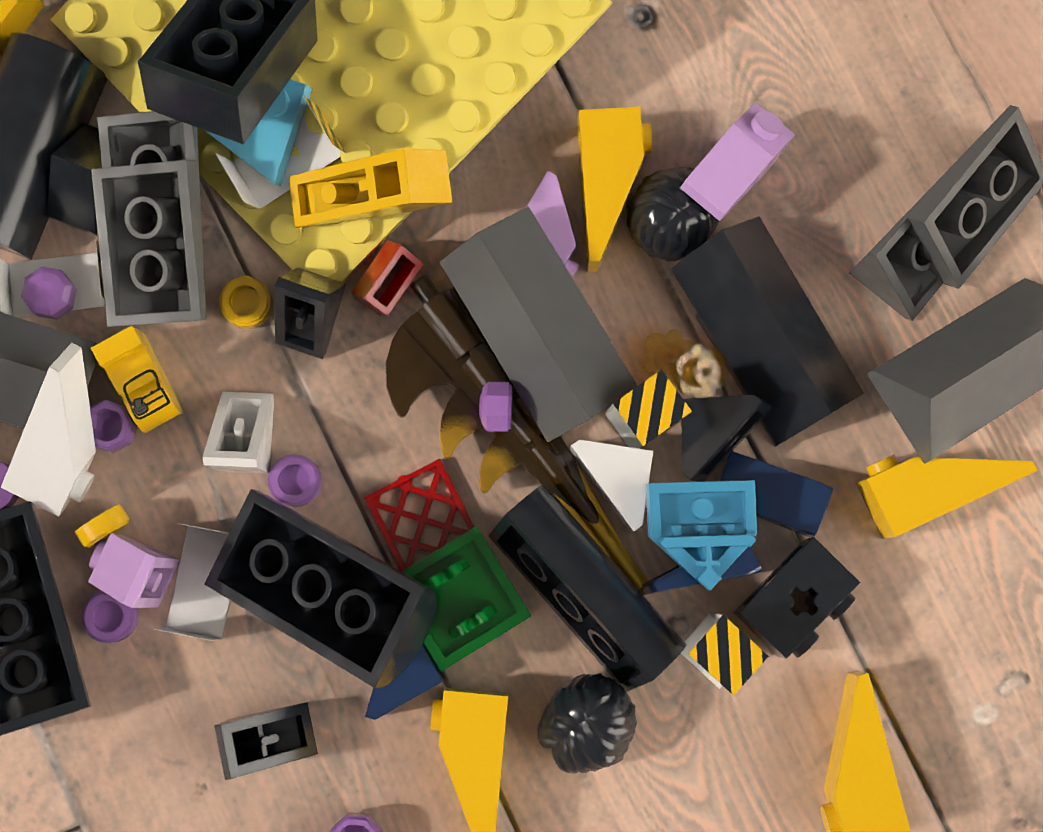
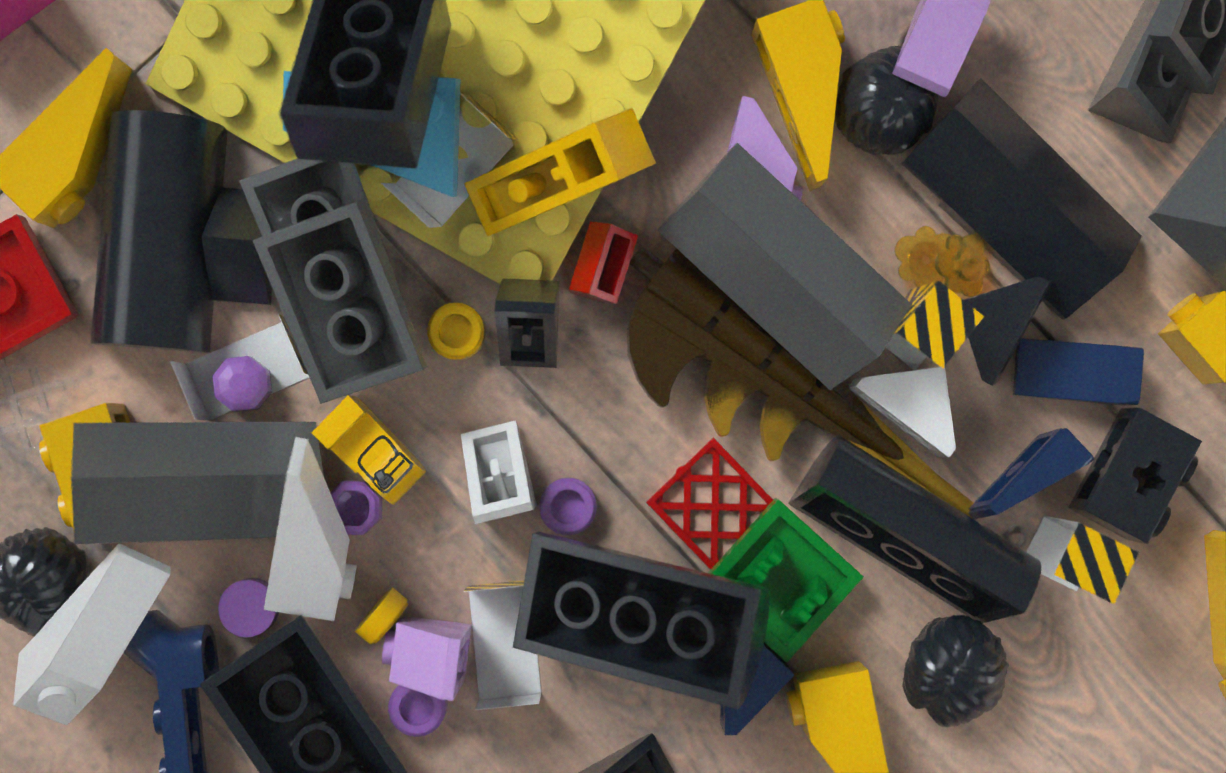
camera: 20 degrees left, 5 degrees up
(496, 406) = (766, 368): medium lavender tile -> none
(702, 524) = (1022, 429): dark azure slope -> none

